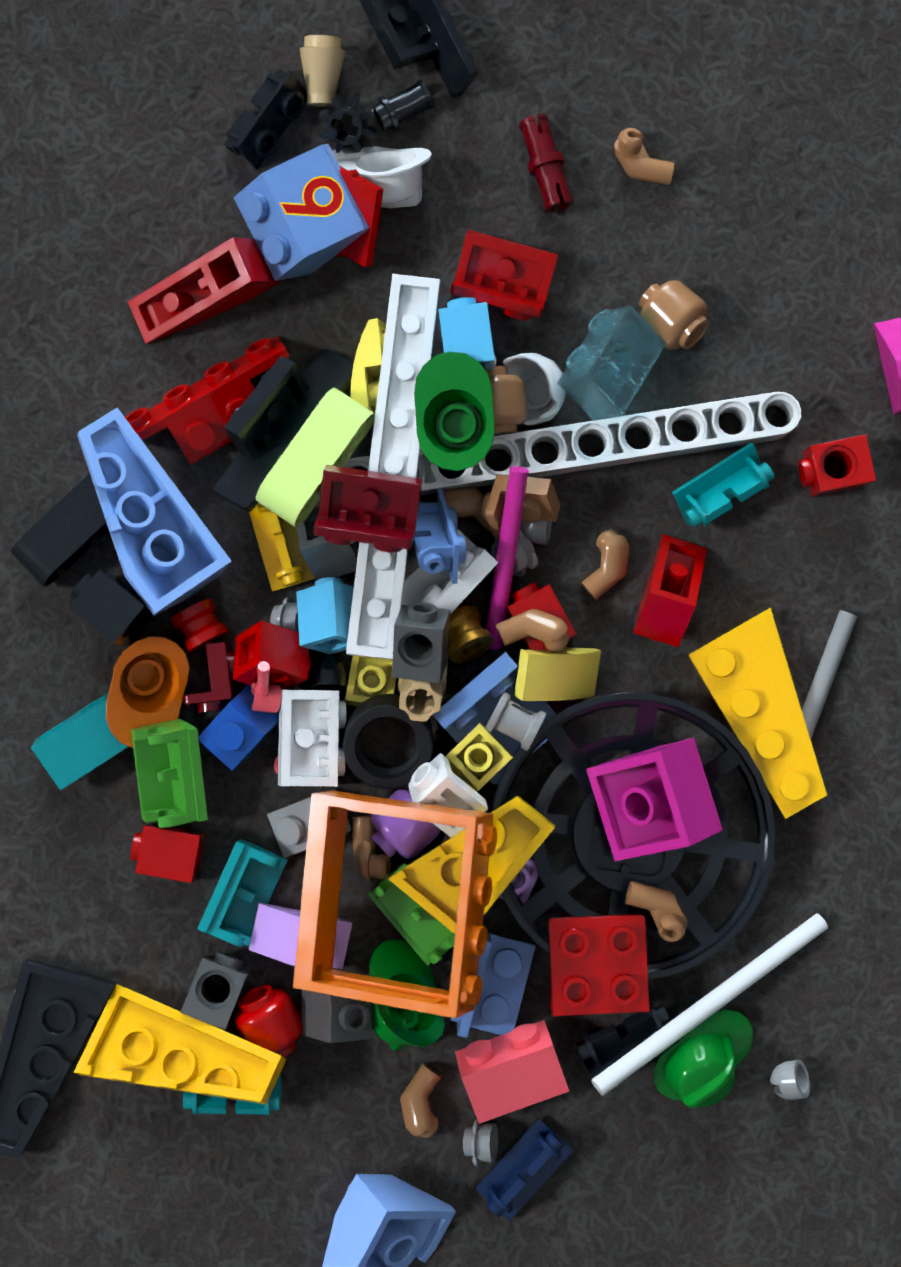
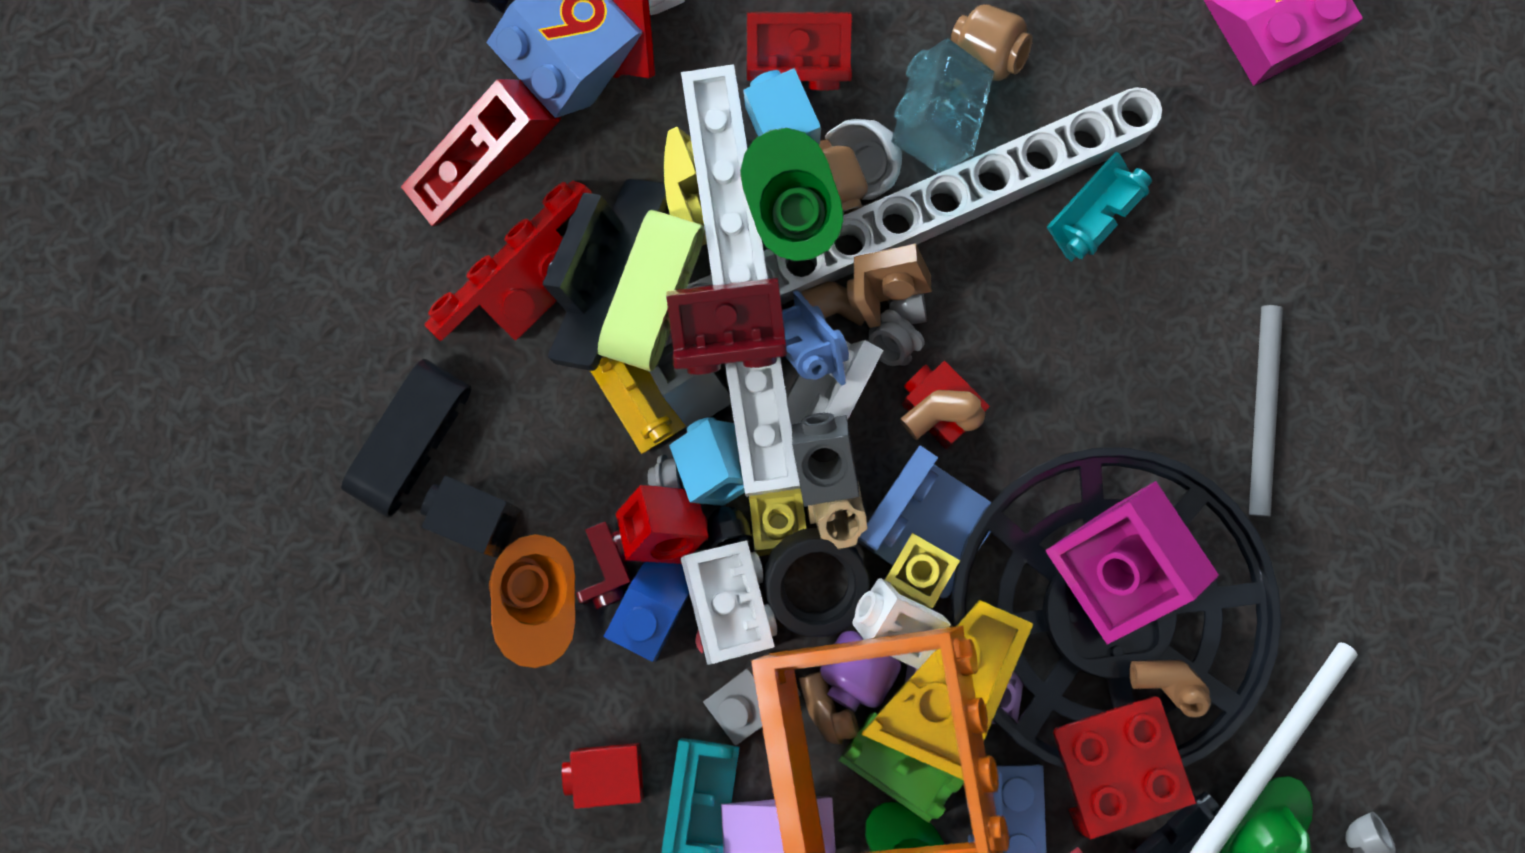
camera: 15 degrees left, 5 degrees down
(77, 744) = (471, 682): teal hinge -> none
(153, 527) = (493, 415): light blue wedge -> none
(169, 773) = (583, 685): bright green hinge -> none
(199, 625) = (571, 512): red wheel -> none
(266, 696) = (669, 568): coral hand -> none
(466, 635) = (870, 442): pearl gold wheel -> none
(506, 551) = (889, 342): dark pink bar -> none
(515, 721) = (952, 519): light grey bush -> none
(557, 674) = (980, 456): light yellow slope -> none
(614, 564) = (1004, 321): medium nougat arm -> none
(671, 591) = (1077, 335): red slope -> none
(759, 701) = (1207, 426): yellow wing -> none
(853, 454) = (1225, 135): red brick -> none

